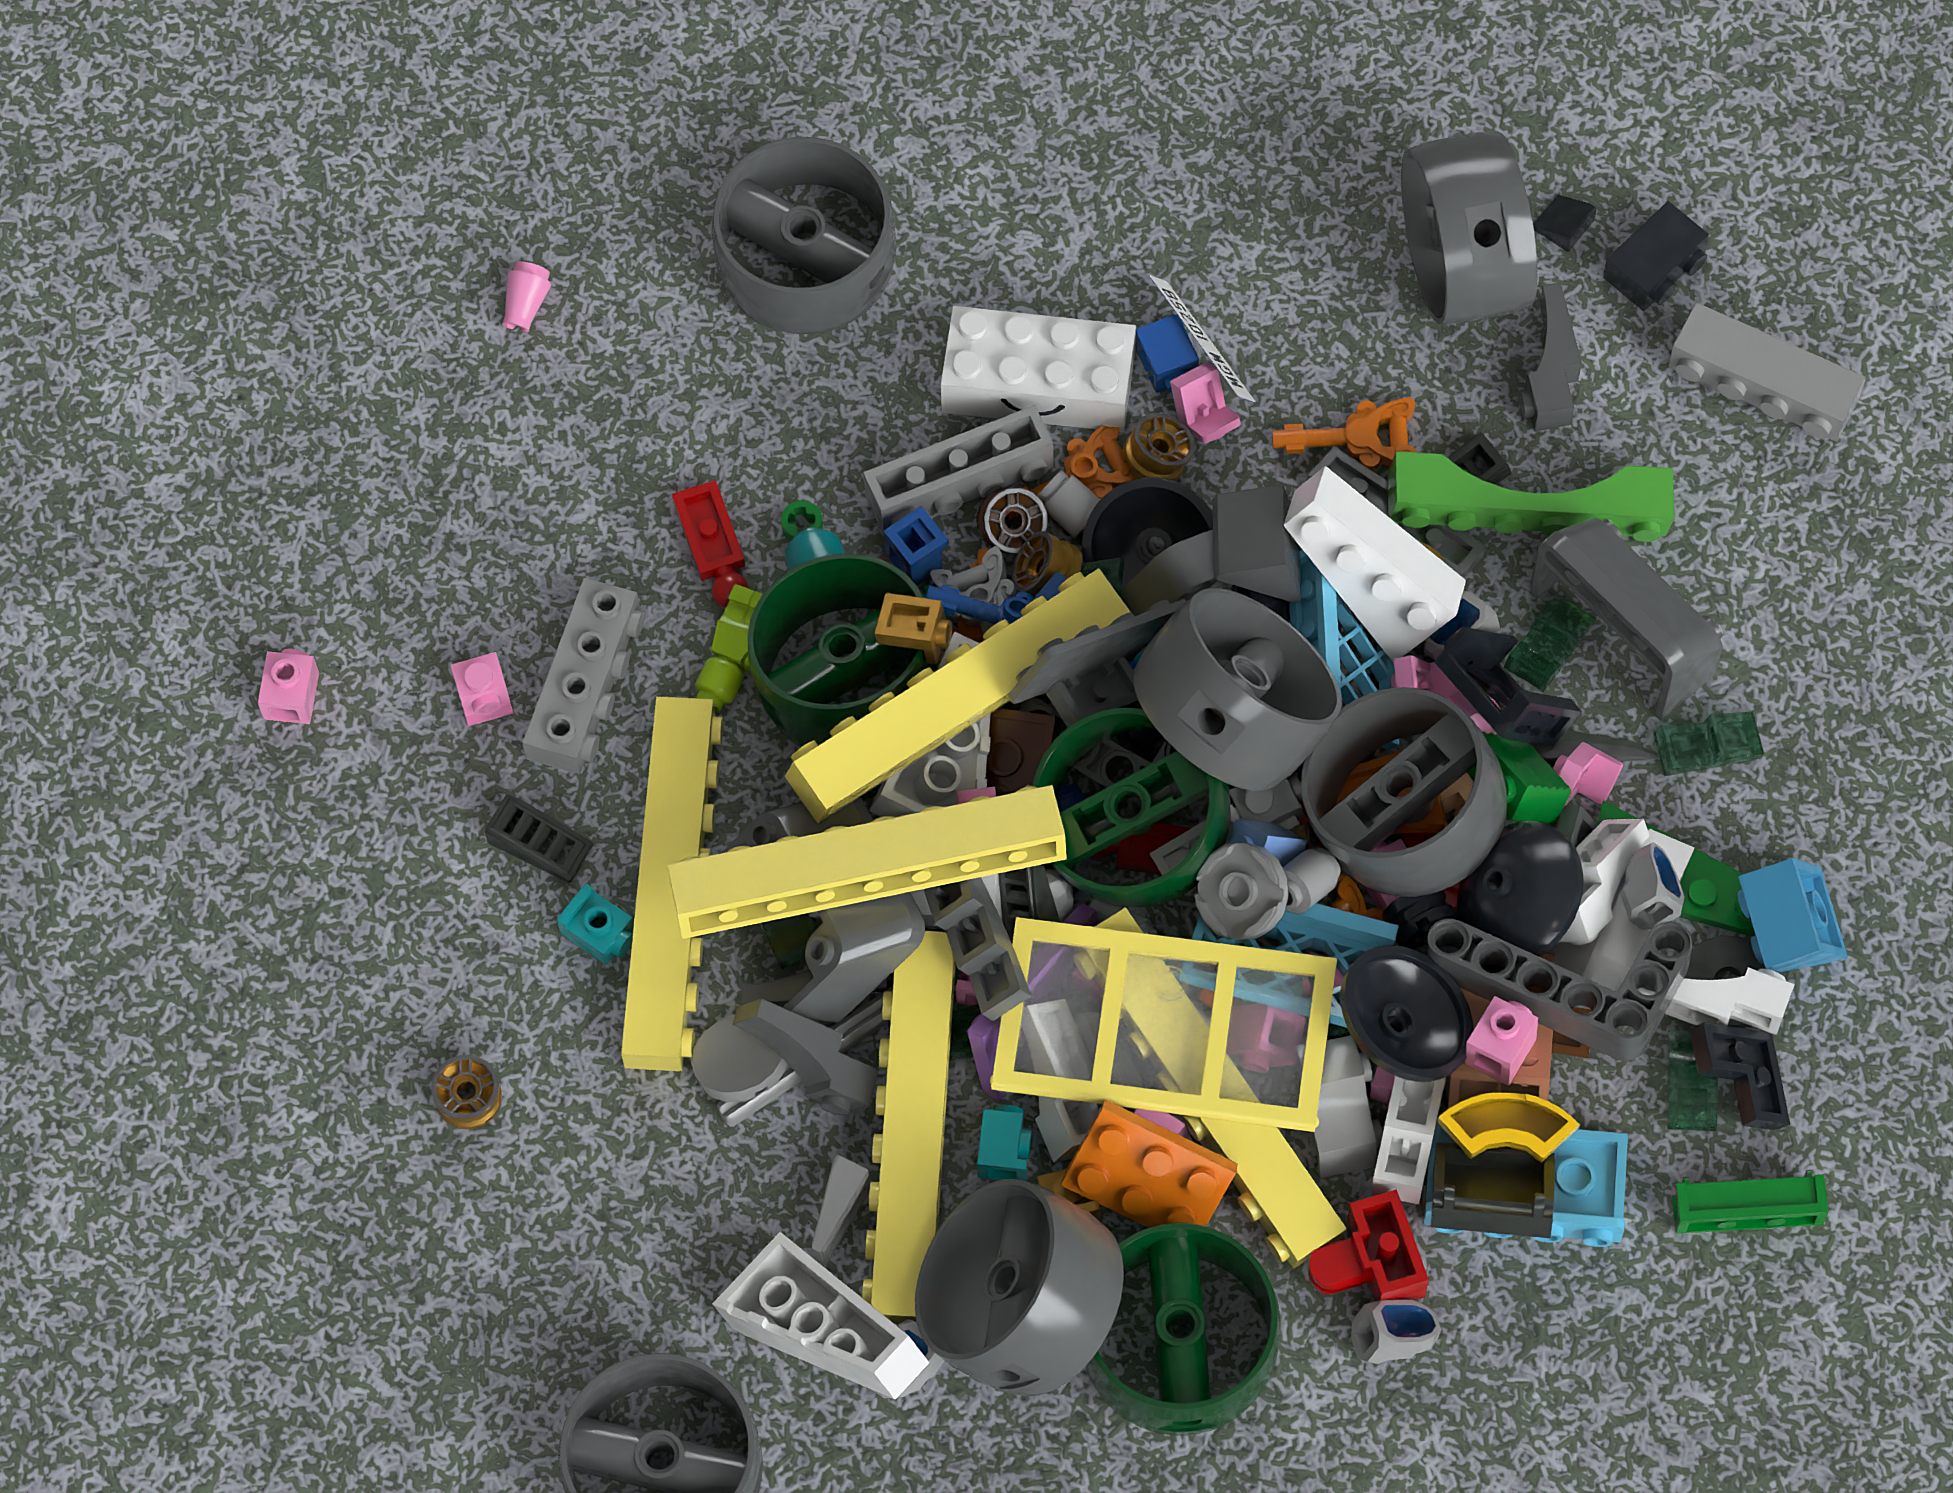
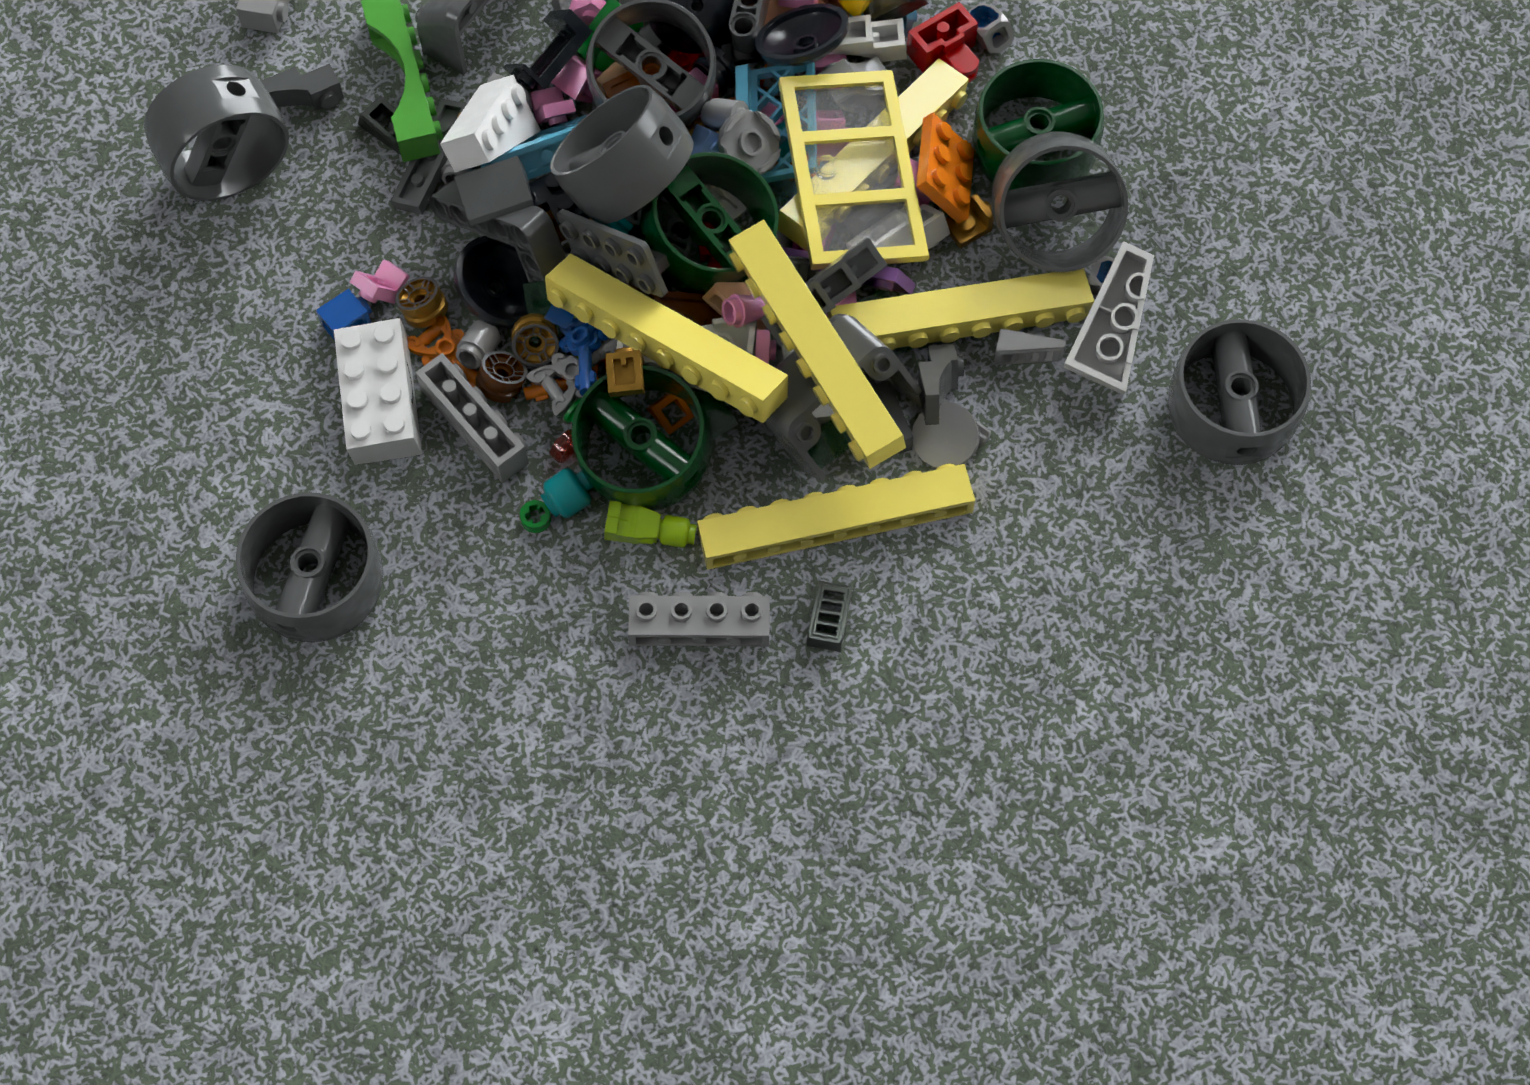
camera: 110 degrees left, 0 degrees up
(288, 686) = (769, 821): bright pink brick -> none
(456, 1076) = (1040, 591): pearl gold wheel -> none
(482, 689) = (730, 684): bright pink brick -> none
(524, 294) = (400, 761): bright pink cone -> none
(603, 942) = (882, 563): teal brick -> none
(711, 538) = (567, 569): red plate -> none
(915, 545) = (540, 427): blue brick -> none
(1003, 1144) = (948, 266): teal brick -> none
(1202, 339) = (332, 290): white sticker -> none
(1358, 435) = (376, 190): orange piece -> none
(1549, 642) = (494, 53): clear green slope -> none
(1657, 257) = (196, 47): black brick -> none

